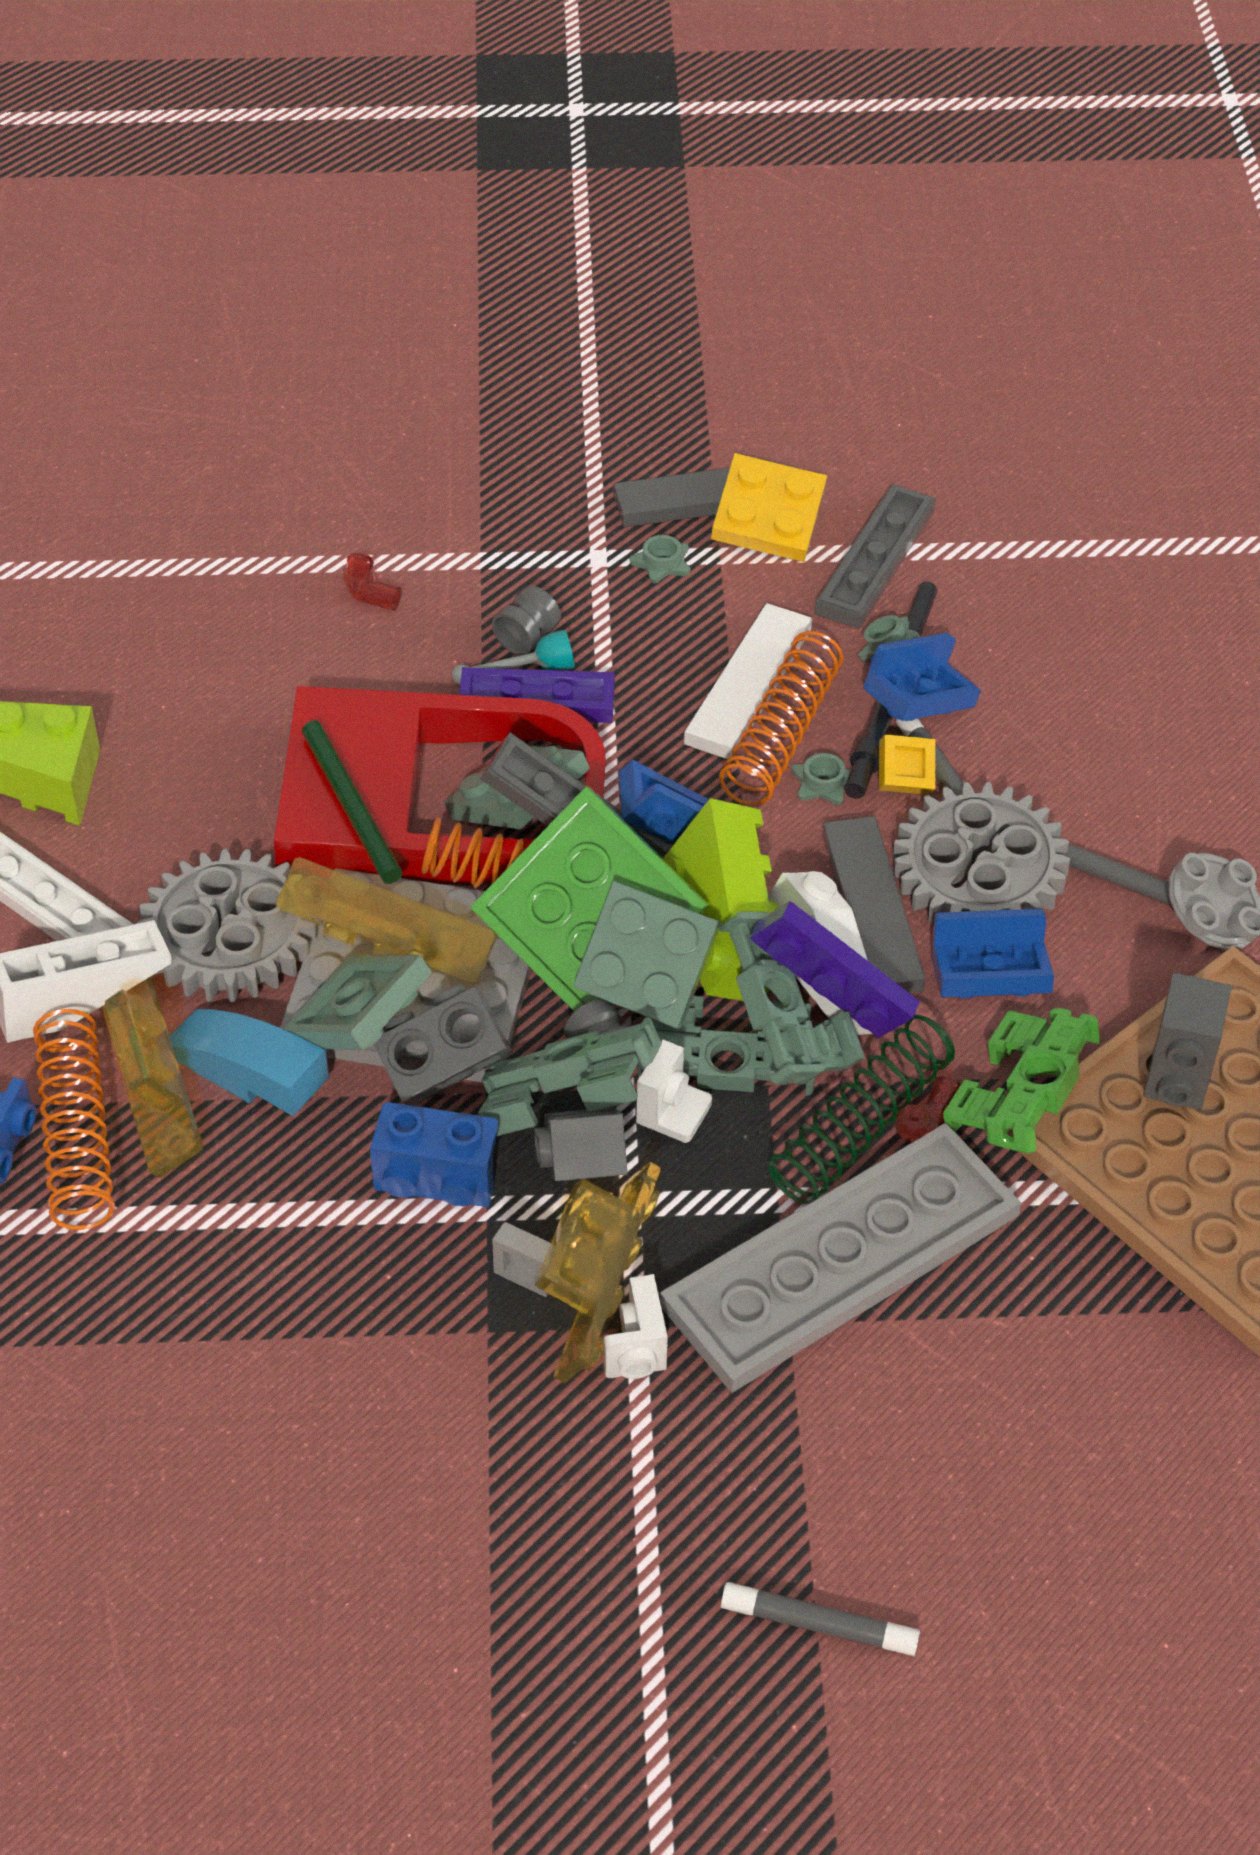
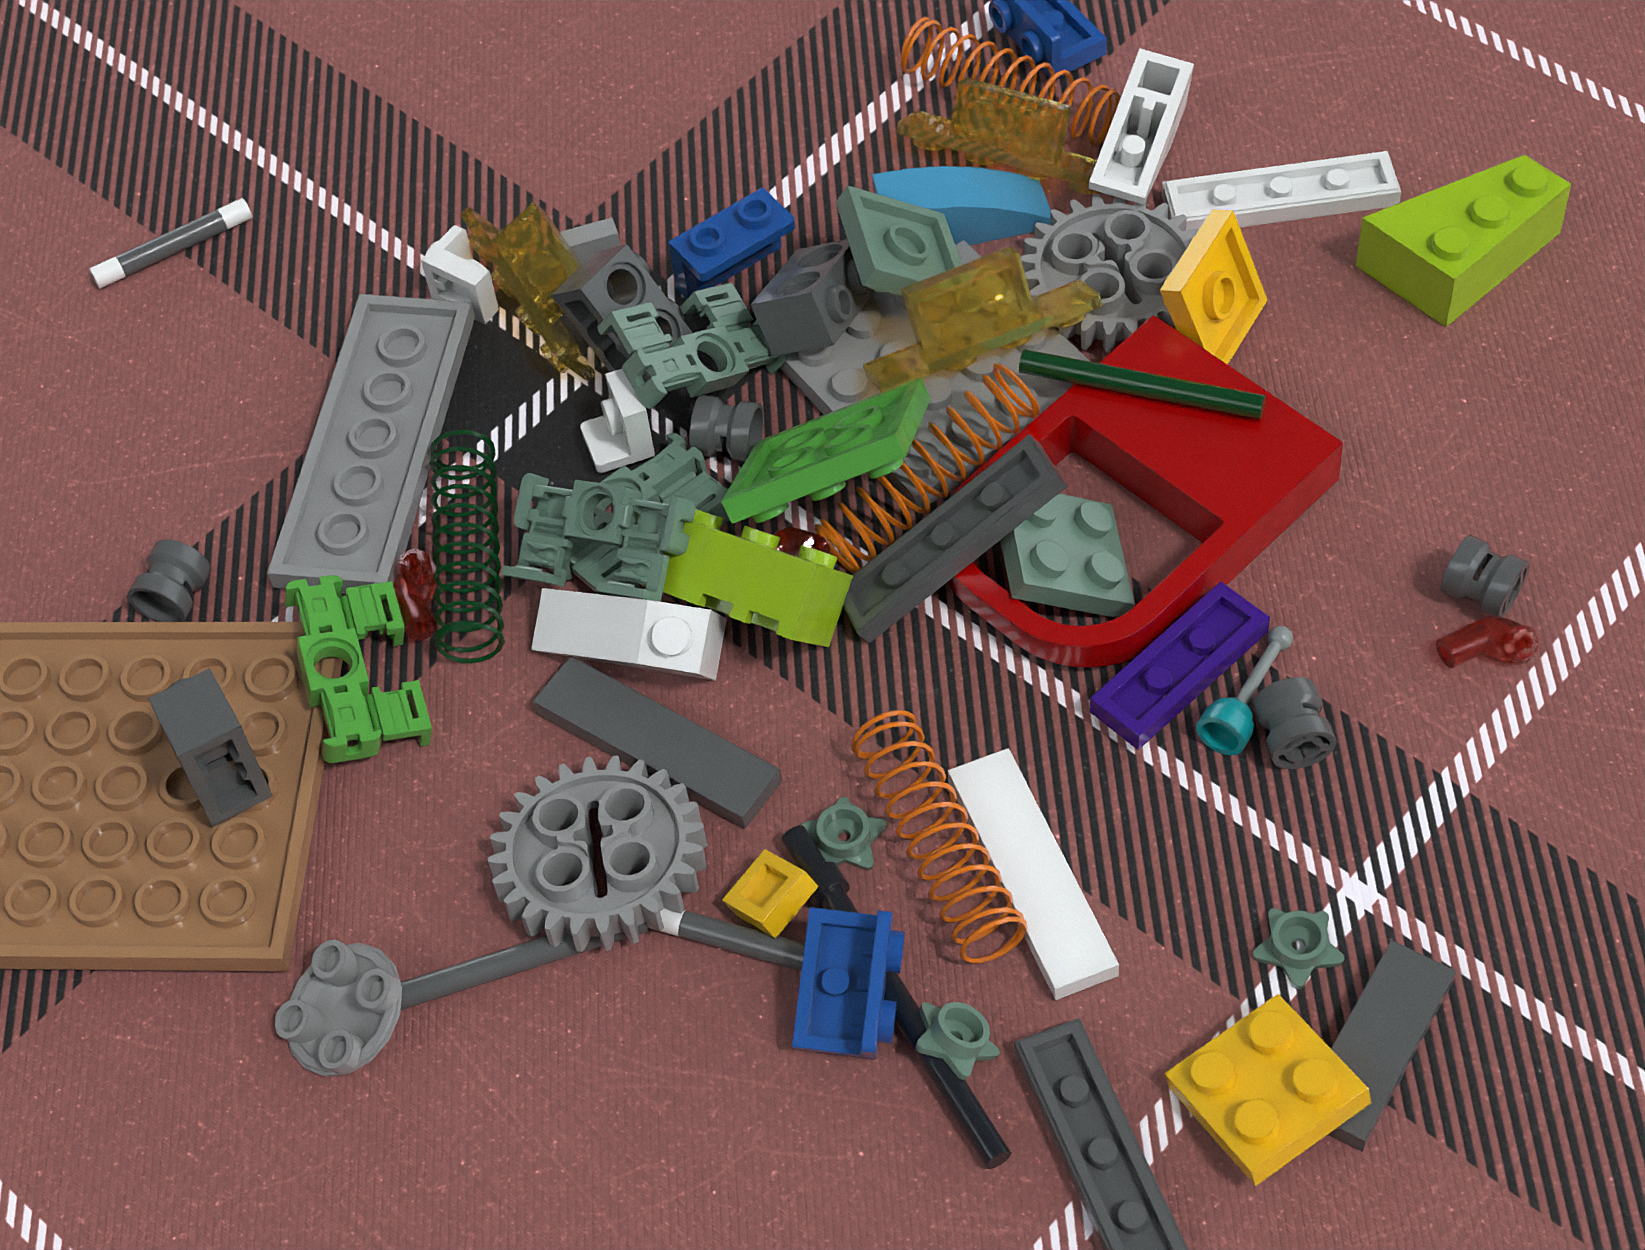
camera: 140 degrees right, 5 degrees up
(217, 824) = (1215, 287): none -> yellow plate
(324, 600) = (1484, 576): none -> dark grey wheel
(647, 954) = (752, 447): sand green plate -> none
(657, 802) = (896, 627): blue bracket -> none
(834, 969) = (569, 559): dark purple plate -> none
(991, 953) = (488, 760): blue bracket -> none
(1096, 1264) = (171, 578): none -> dark grey wheel

